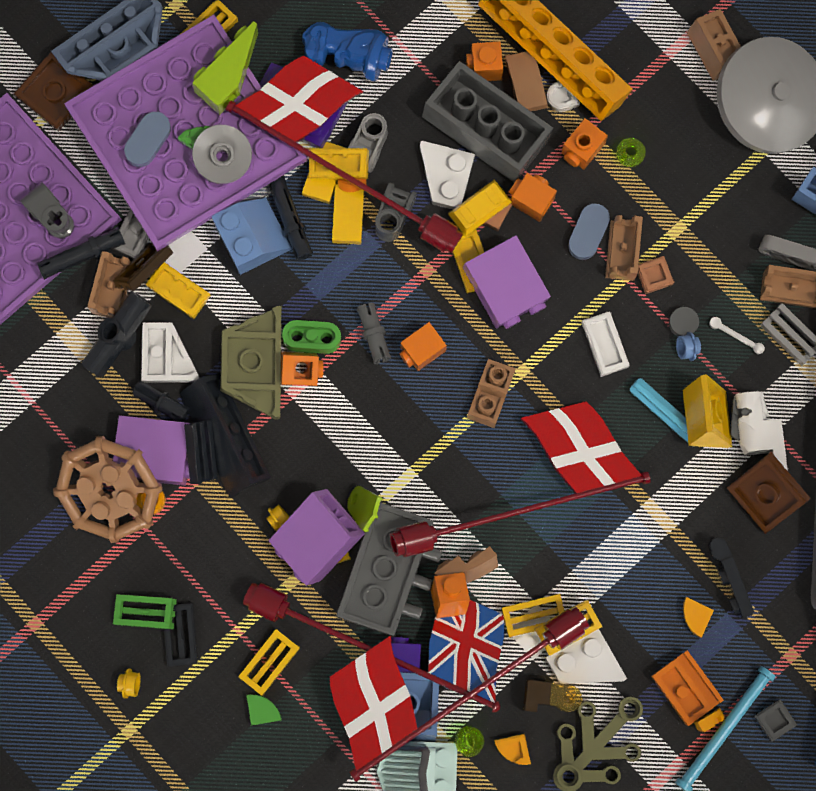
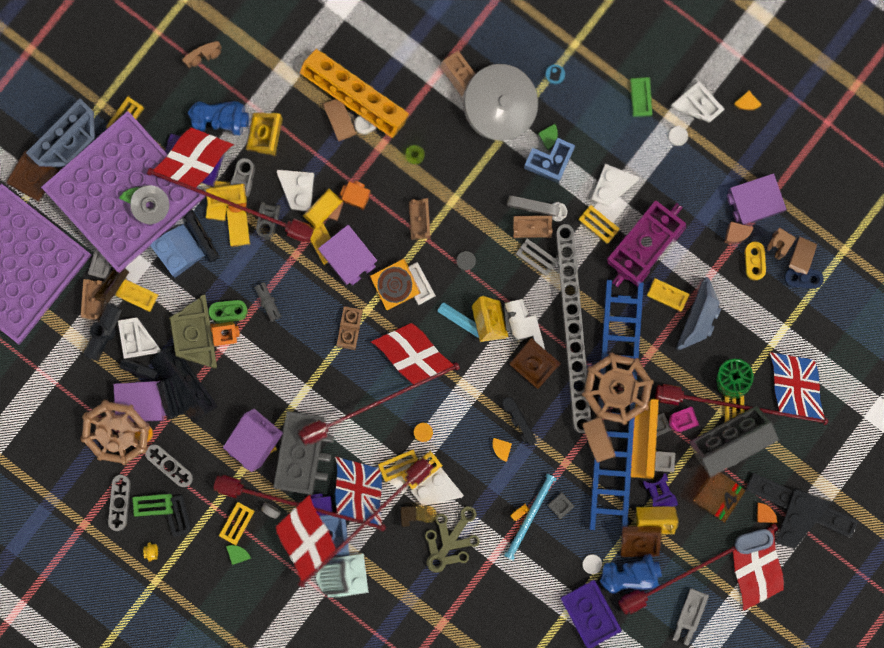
camera: 10 degrees left, 5 degrees up
(47, 210) = (42, 257): dark grey piece -> none
(81, 253) = (70, 282): black pin -> none
(87, 589) = (115, 487): none -> light grey beam
(147, 139) = (99, 202): sand blue tile -> none
(160, 544) = (161, 452): none -> light grey beam
(226, 74) = (143, 152): lime slope -> none
(277, 517) = (226, 431): yellow plate -> none
(325, 651) = (270, 510): none -> light grey tile
(363, 507) = (279, 416): lime piece -> none
(411, 83) = (264, 133): none -> yellow slope
(422, 347) = (300, 306): orange brick -> none
(450, 595) = (343, 462): orange brick -> none
(469, 741) = (373, 548): clear neon green plate -> none
(477, 566) = (345, 447): medium nougat slope -> none
(486, 60) = (310, 110): orange brick -> none
(487, 122) = (318, 151): dark grey brick -> none
(514, 749) = (400, 551): light orange tile -> none
(572, 338) = (395, 284): none -> tile
(579, 570) = (423, 432): none -> light orange tile
(583, 144) = (383, 155): orange brick -> none
(588, 231) = (396, 211): sand blue tile -> none
(654, 275) = (442, 233): nougat tile -> none
(687, 688) = (502, 495): orange plate -> none
(688, 346) = (471, 277): medium blue plate -> none
(715, 323) = (516, 270): white hinge -> none

